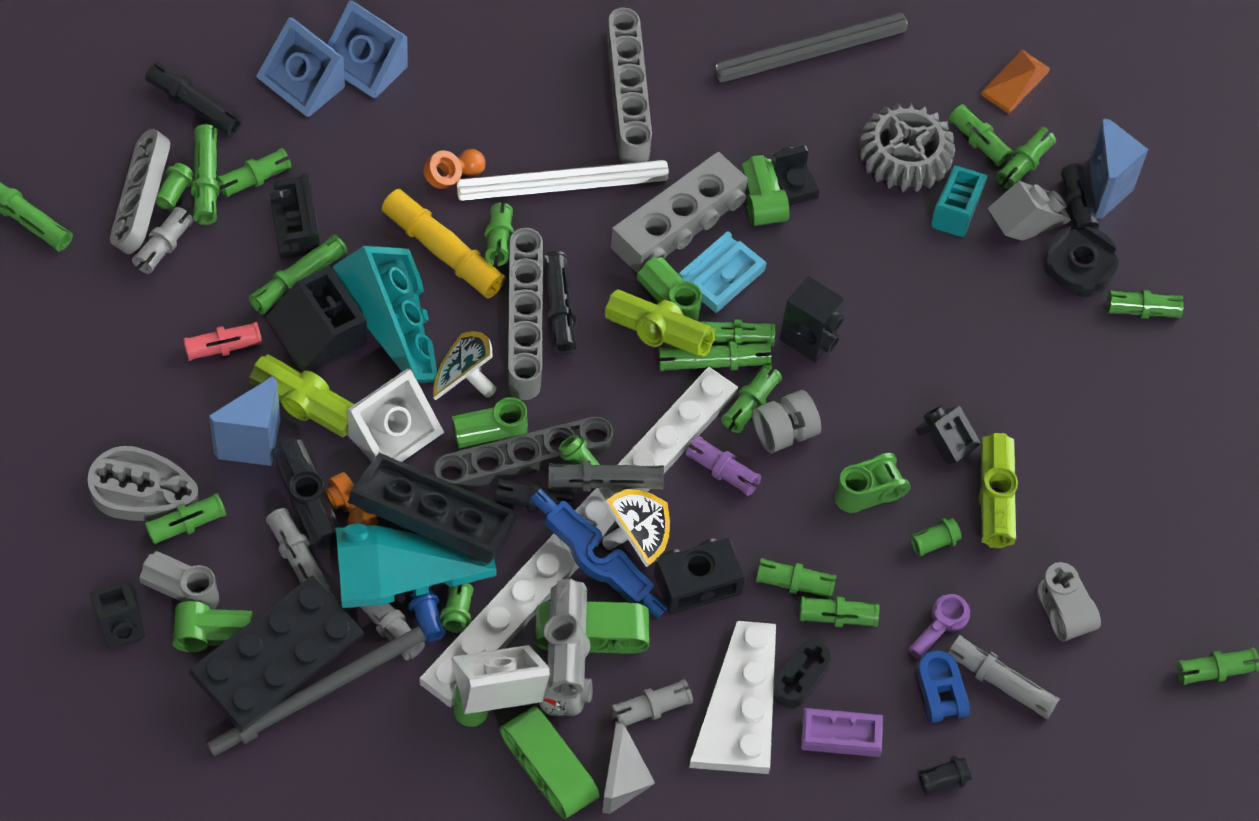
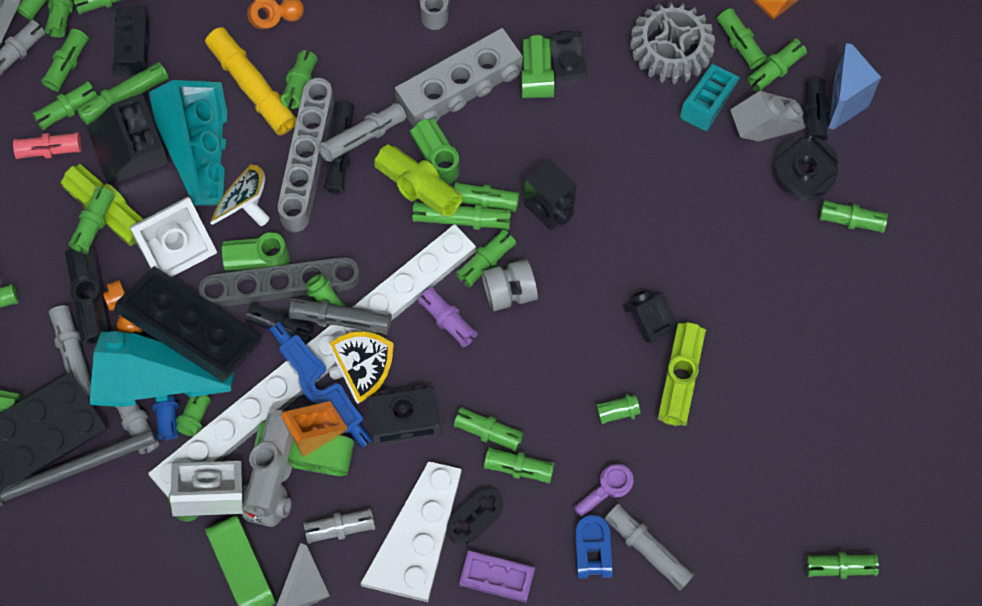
camera: 15 degrees right, 10 degrees up
(222, 247) = (65, 60): none -> bright green pin
(233, 295) = (64, 105): none -> bright green pin
(248, 426) = (47, 226): medium blue slope -> none
(300, 408) = (91, 219): none -> bright green pin
(562, 180) = (366, 34): white axle -> none
(595, 273) = (373, 126): none -> light grey pin
(606, 594) = (313, 426): none -> orange slope
(723, 271) = (485, 137): medium azure plate -> none
(876, 481) = (578, 348): bright green piece -> none
(1067, 604) = (720, 494): light grey piece -> none

